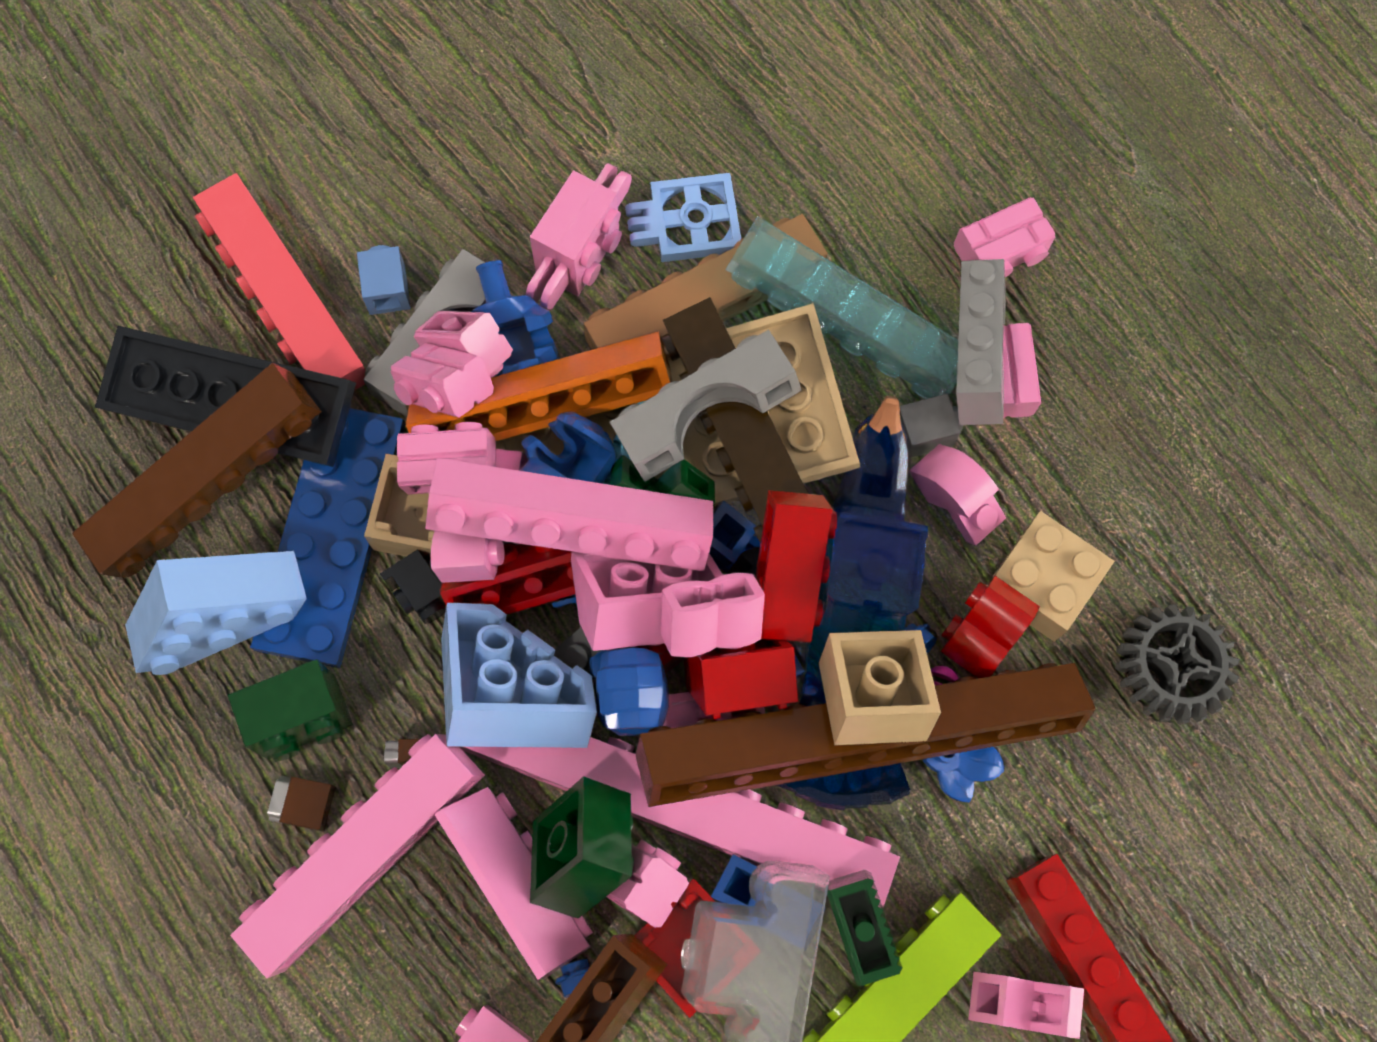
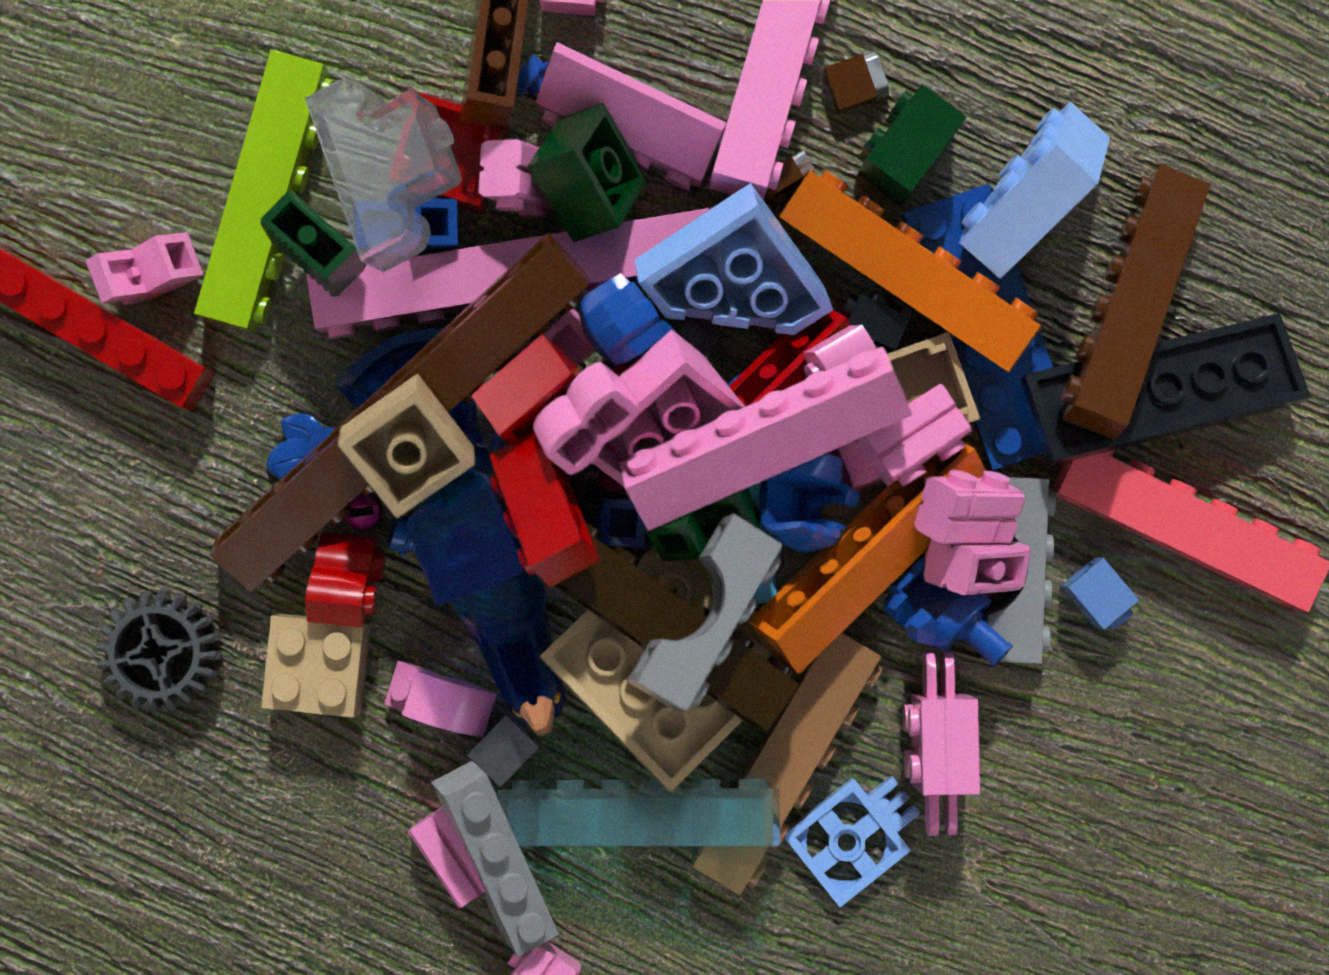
camera: 150 degrees right, 15 degrees up
(361, 605) = (910, 270): none -> orange brick

